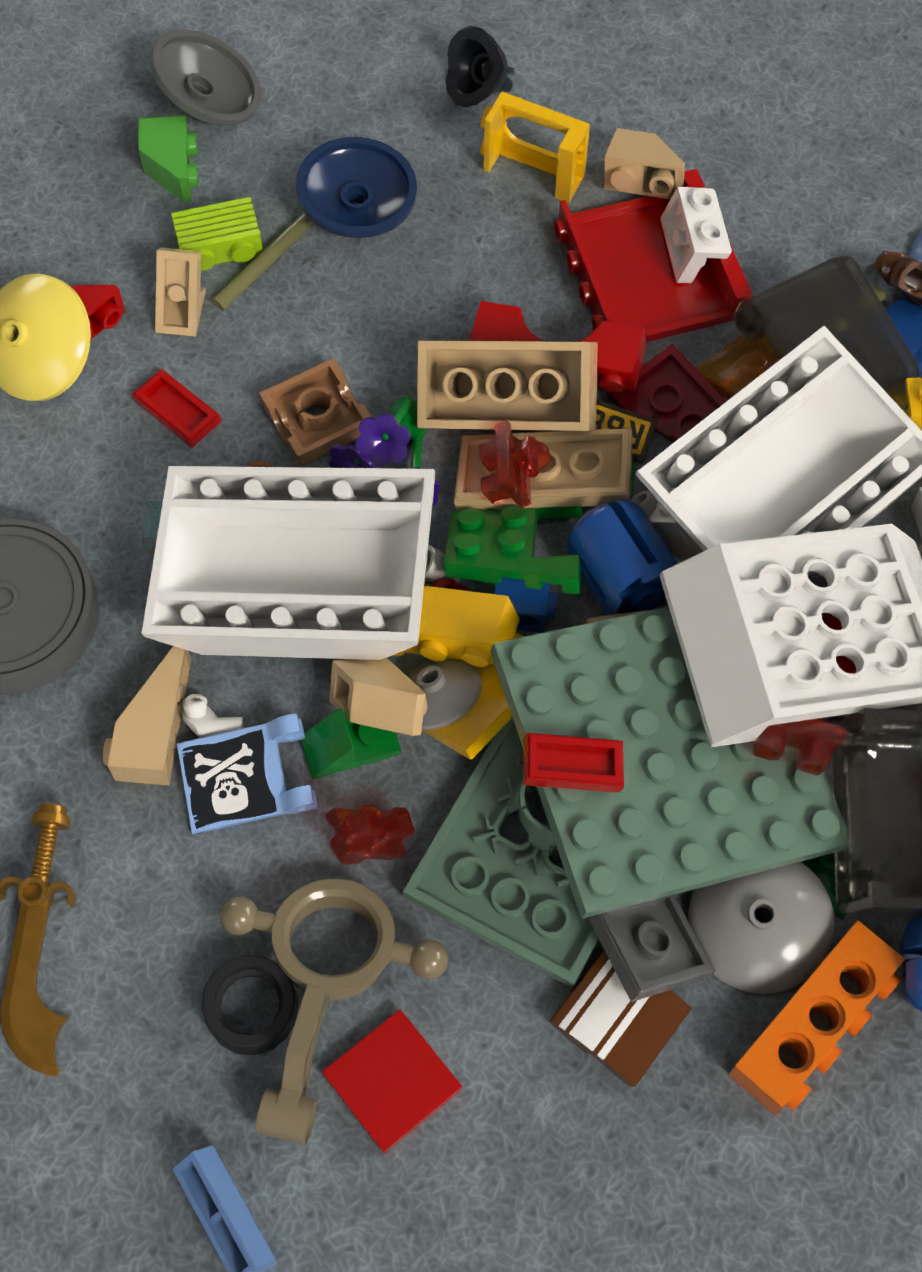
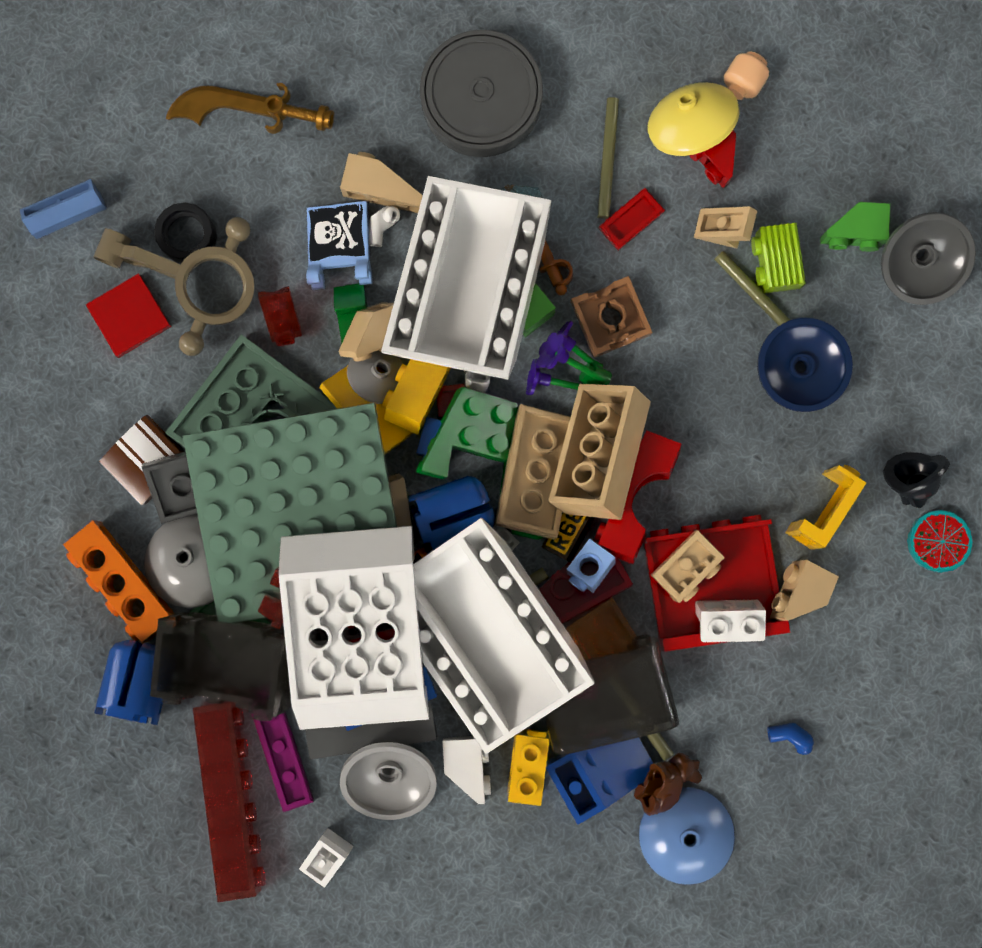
camera: 100 degrees right, 20 degrees up
(90, 445) = (608, 158): none -> olive bar
(516, 464) = (532, 446): clear red hips -> none
(550, 50) = (940, 541): none -> tile
(573, 762) = (277, 441): red tile -> none
(640, 277) = (688, 567): none -> tan bracket
(659, 370) = (593, 553): none -> light blue brick
(815, 168) = (795, 734): none -> blue arm

